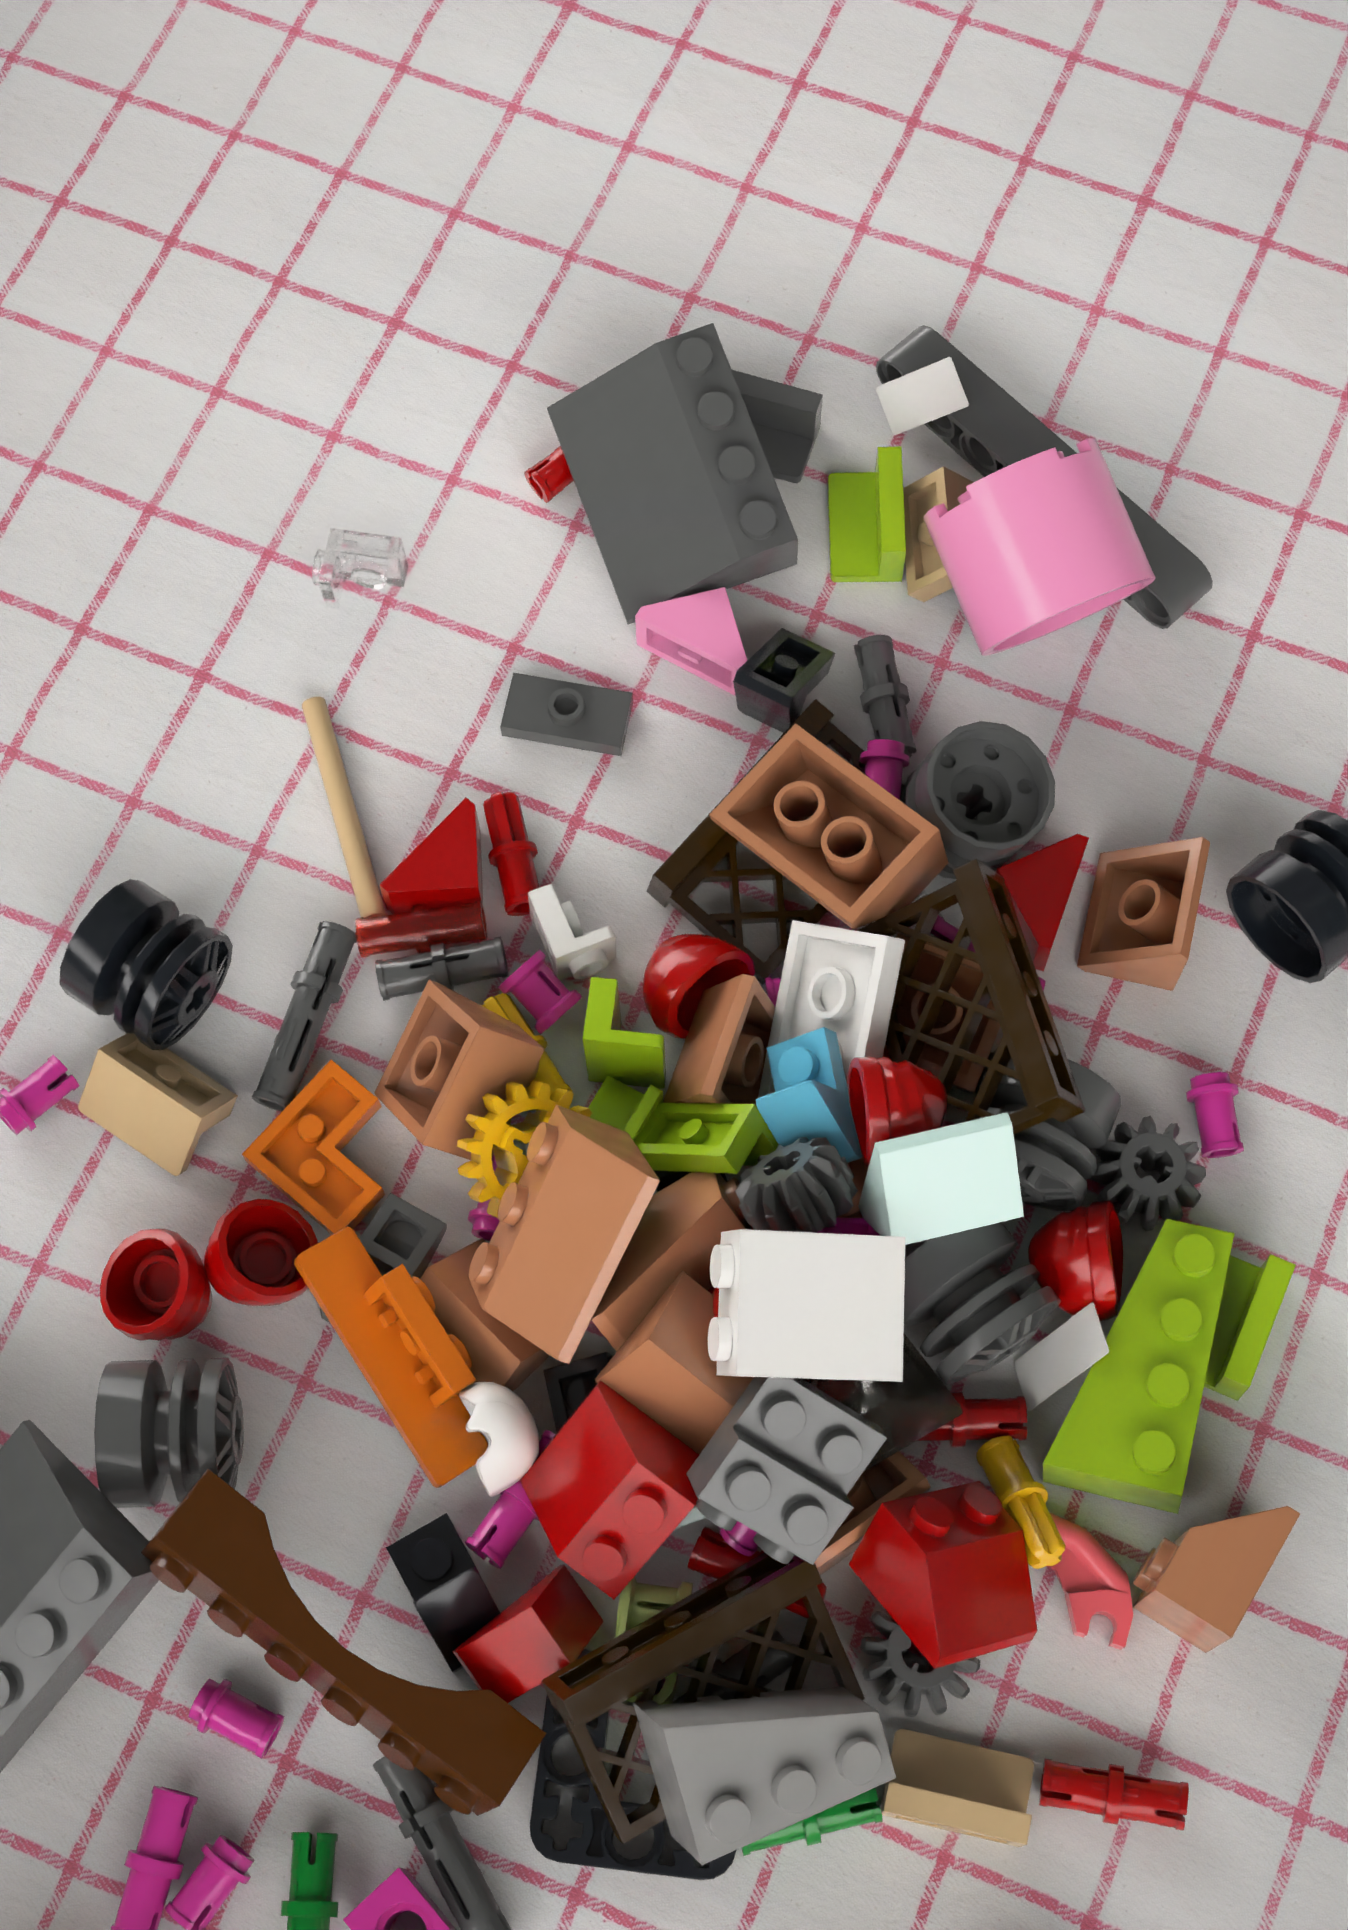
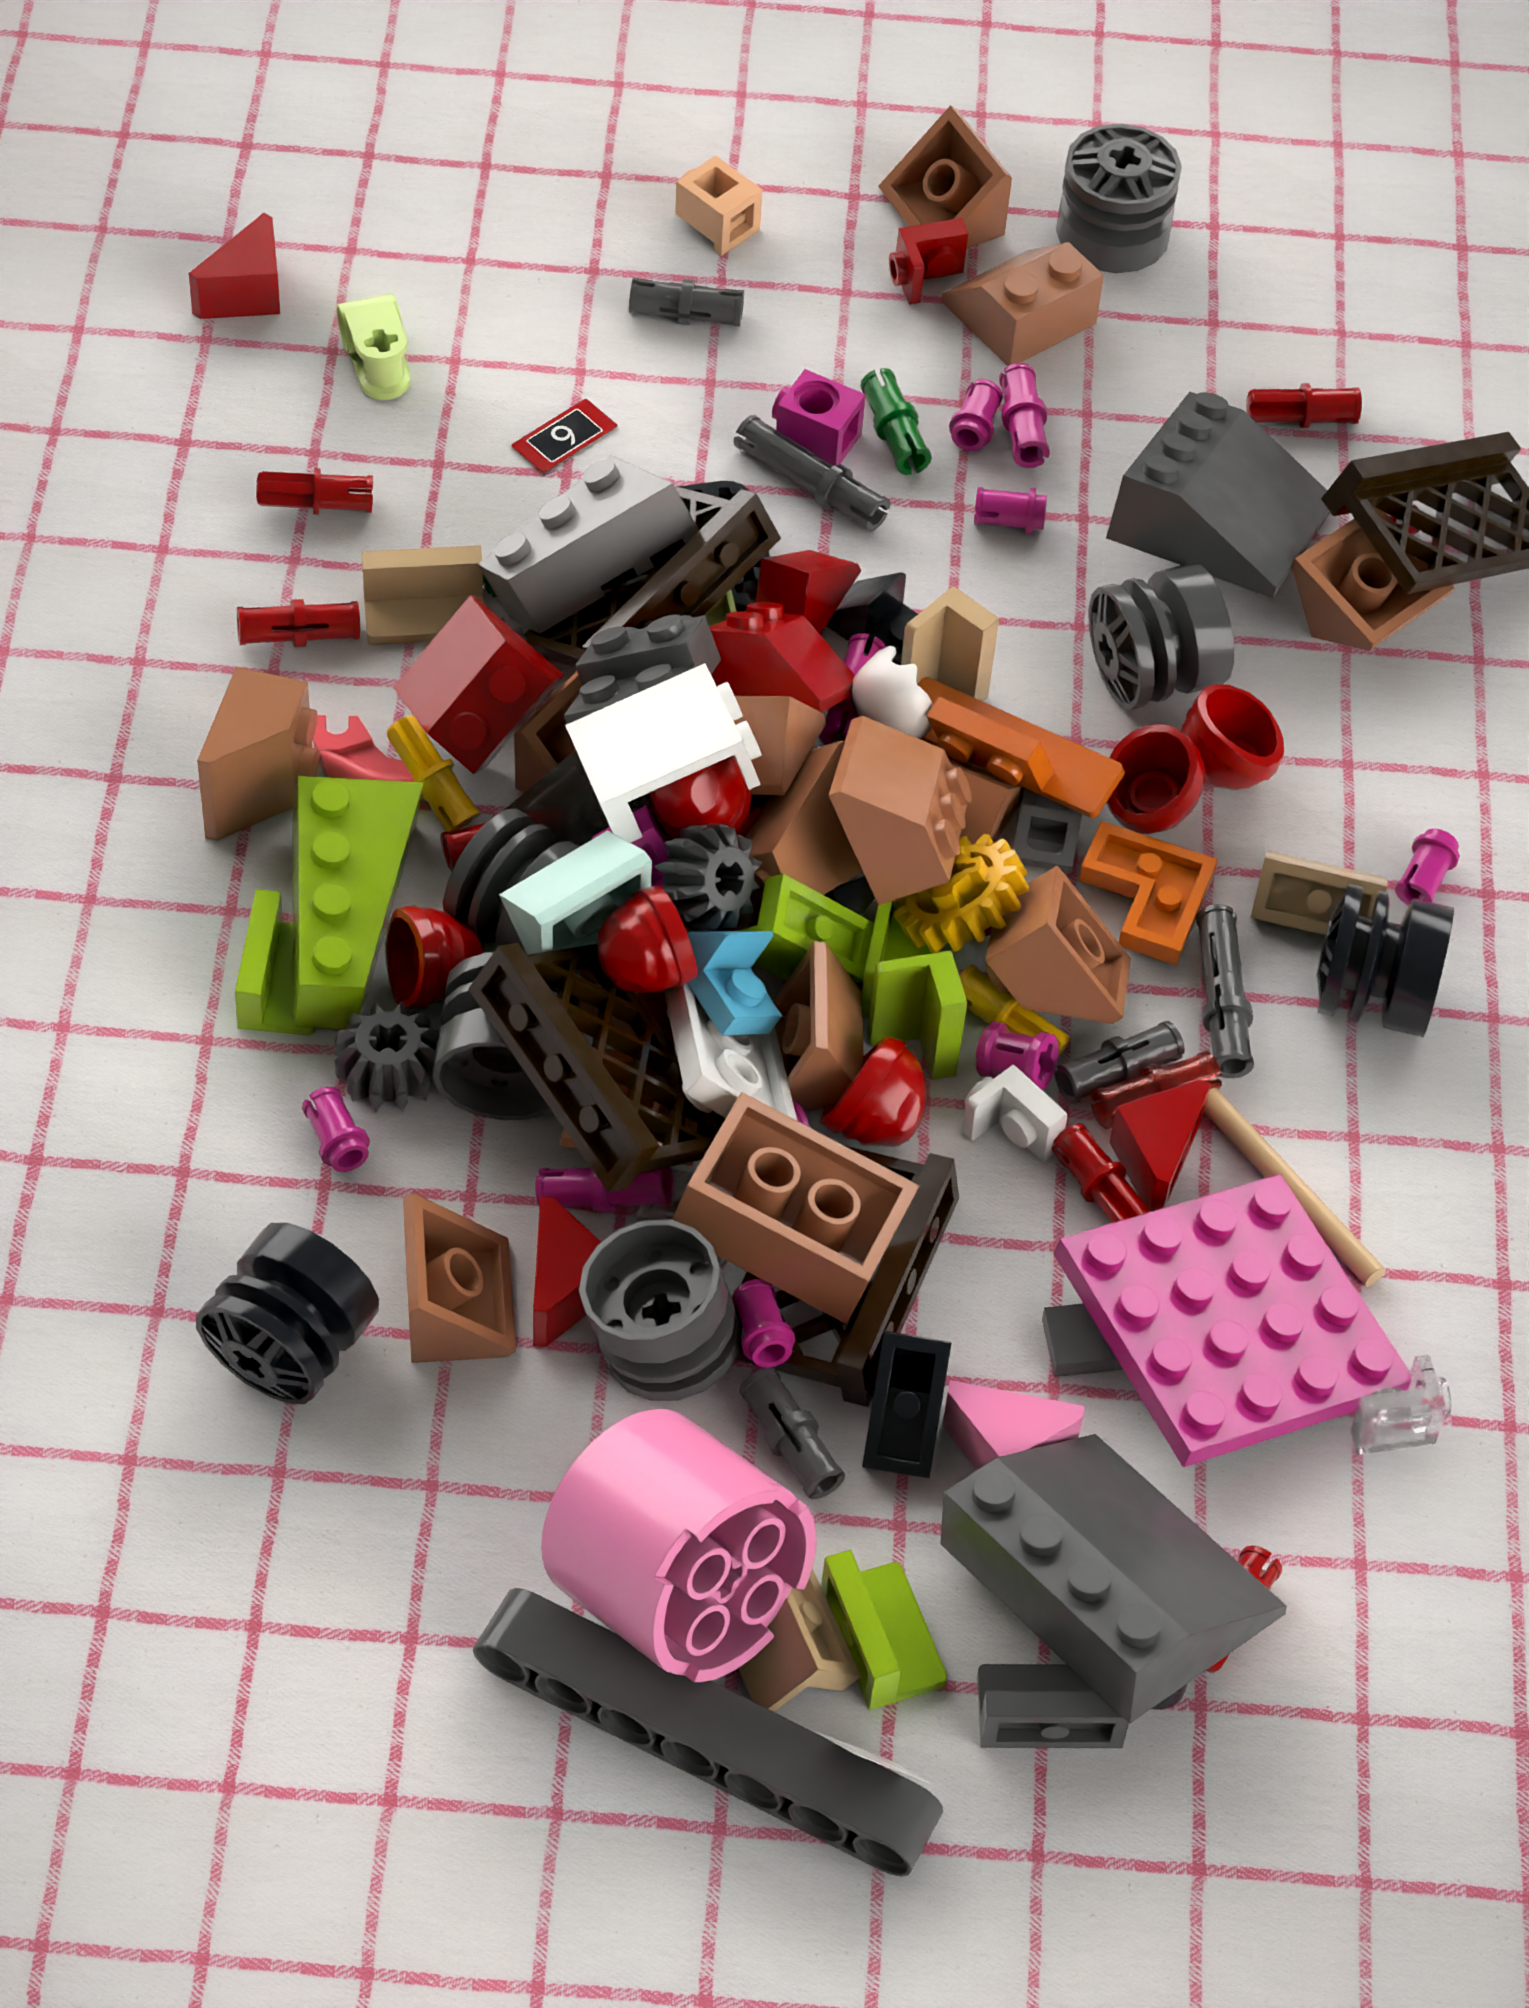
camera: 155 degrees right, 15 degrees down
(225, 1556) = (1067, 528): reddish brown arch -> none
(415, 1500) = (953, 643): none -> tan panel
(462, 685) = (1231, 1318): none -> plate
(1061, 1356) = (423, 878): white sticker -> none

